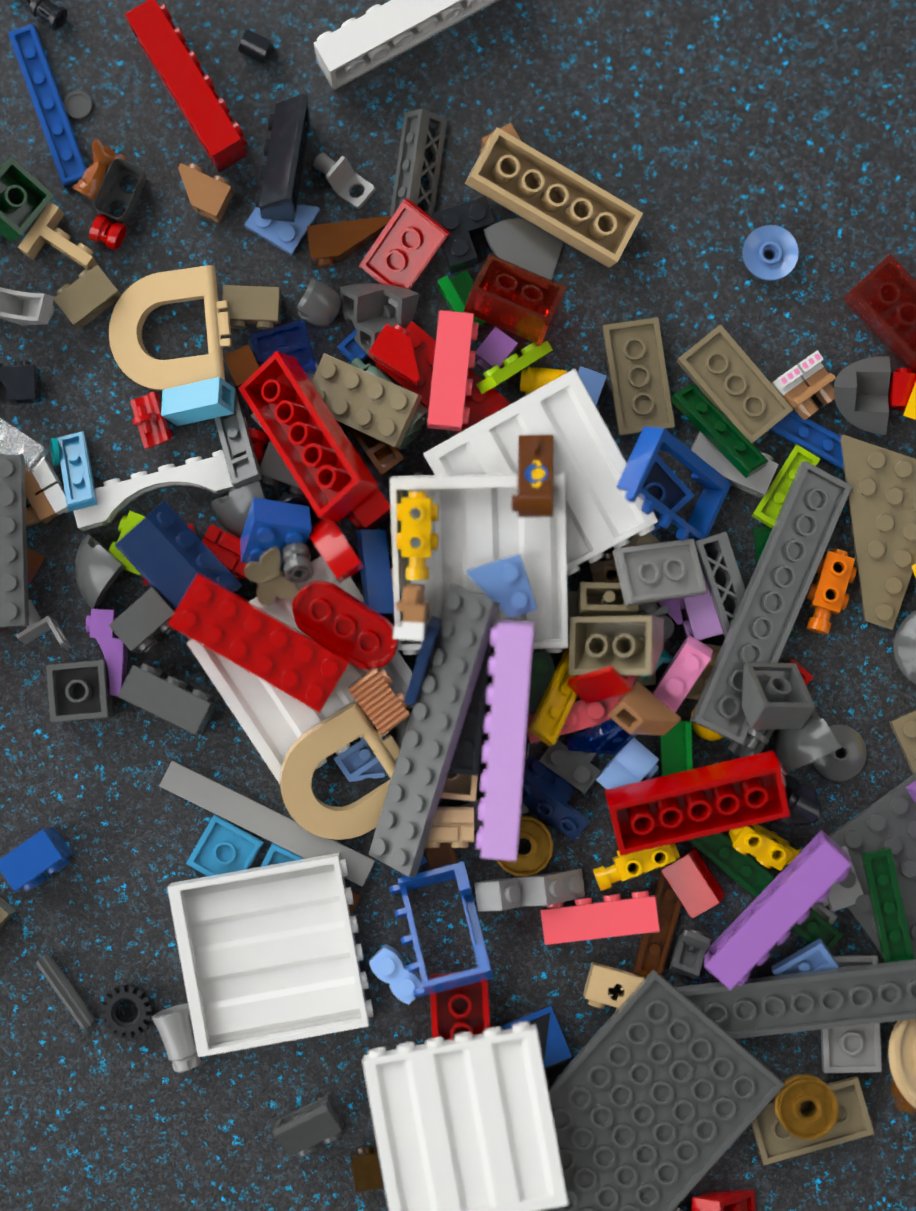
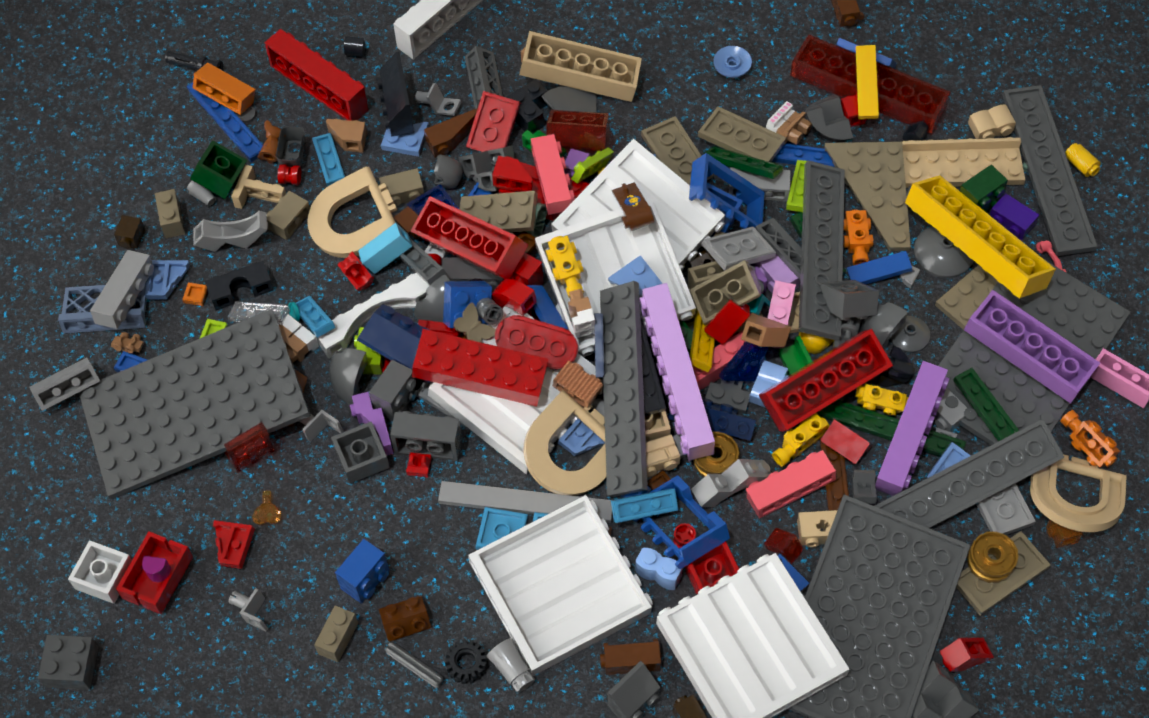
camera: 15 degrees left, 25 degrees down
(55, 59) = (223, 88): none -> orange brick
(71, 927) = (404, 618): none -> reddish brown bracket
(150, 727) = (418, 464): none -> red tile
(169, 222) = (328, 158): none -> dark azure tile
(323, 1075) = (624, 657): none -> reddish brown brick
(407, 890) = (644, 505): none -> dark azure tile
(443, 946) = (683, 533): none -> red wheel
(561, 992) = (785, 543): none -> clear red bracket
(837, 649) = (880, 268): none -> blue tile
(873, 666) = (910, 277): none -> light grey tile

